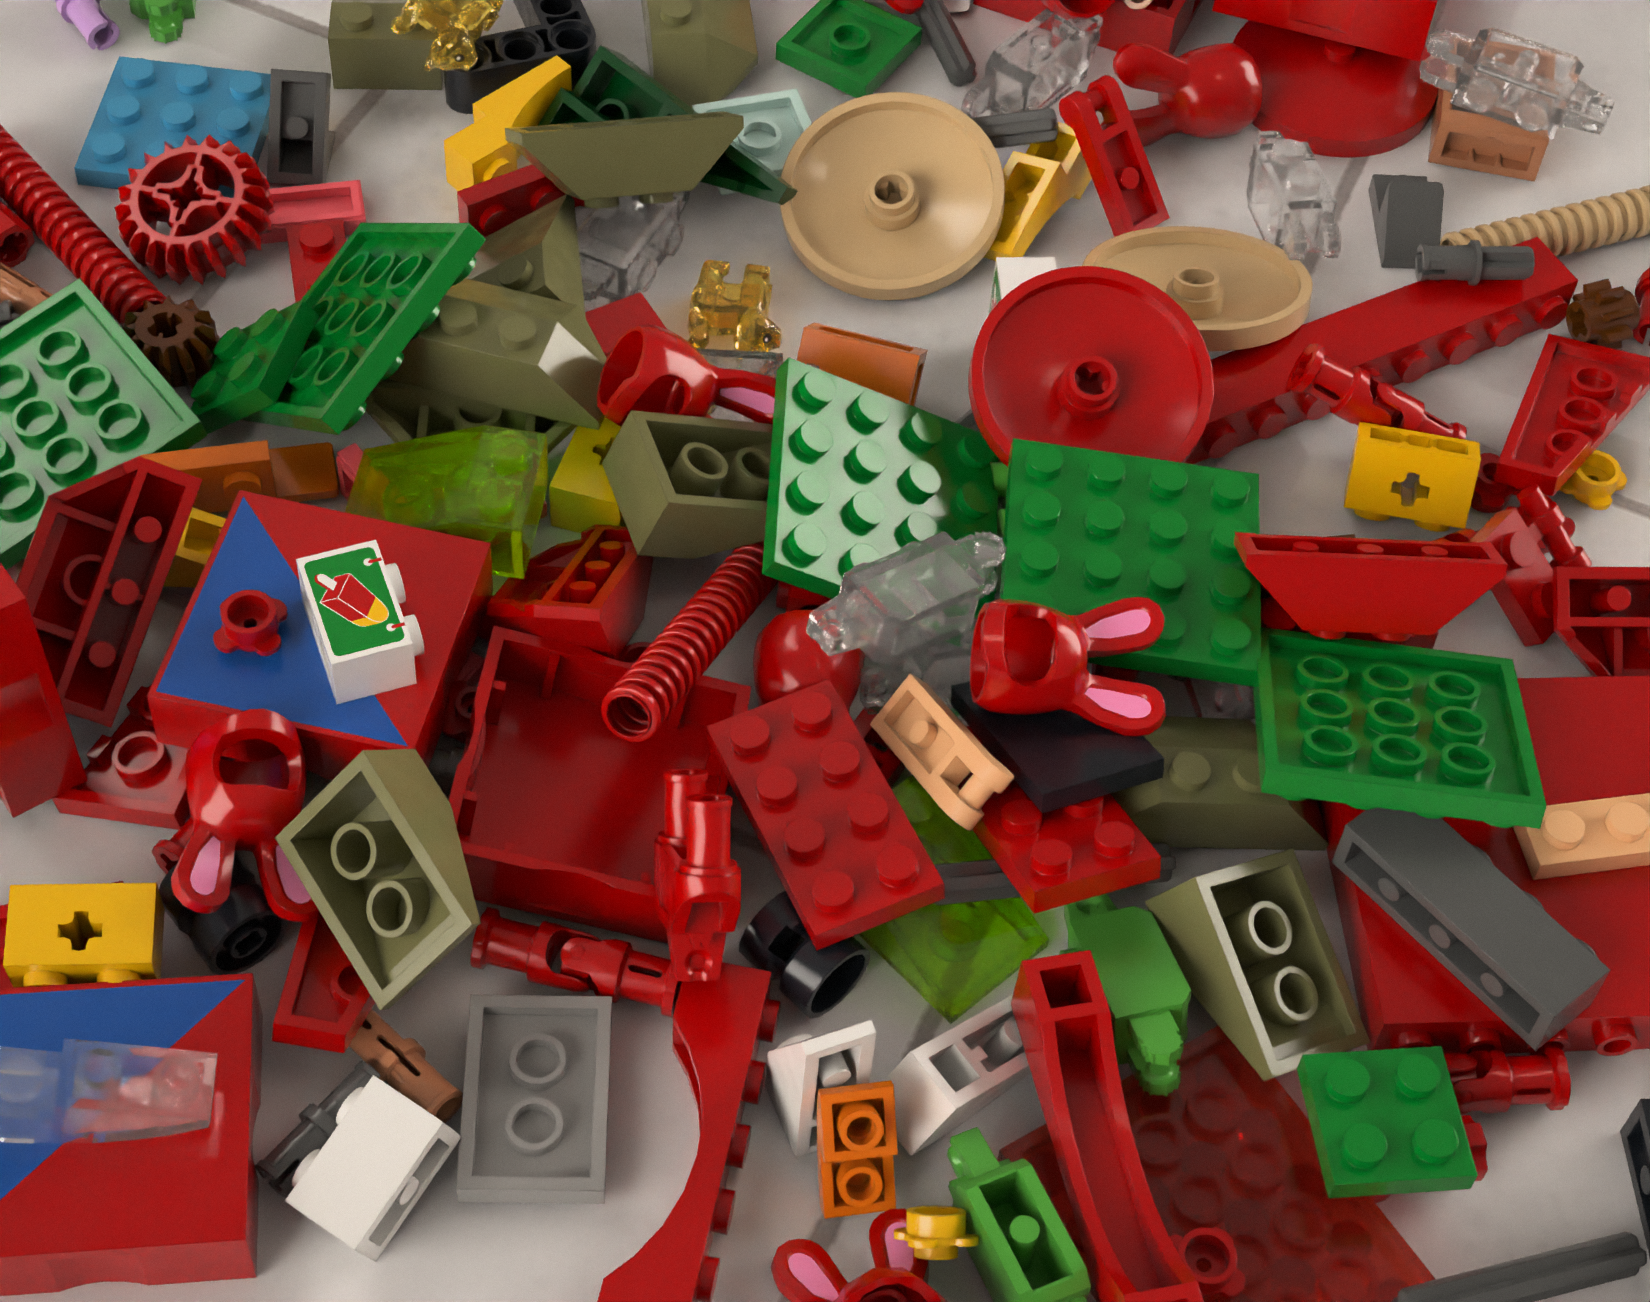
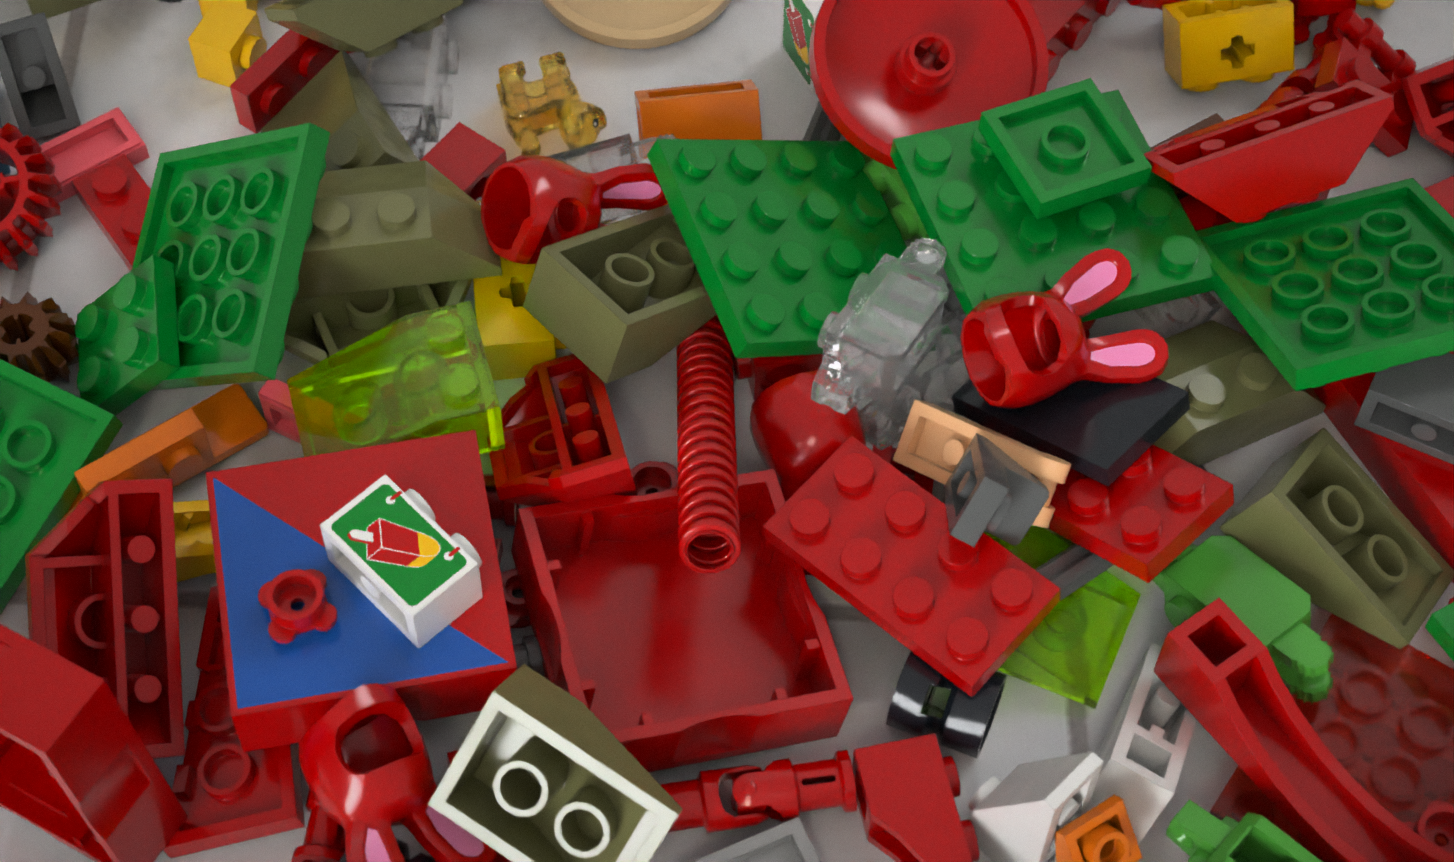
camera: 20 degrees left, 5 degrees up
(695, 876) = (844, 678): red connector -> none
(924, 776) = (991, 495): none -> dark grey slope
(1163, 499) = (1064, 148): none -> green plate

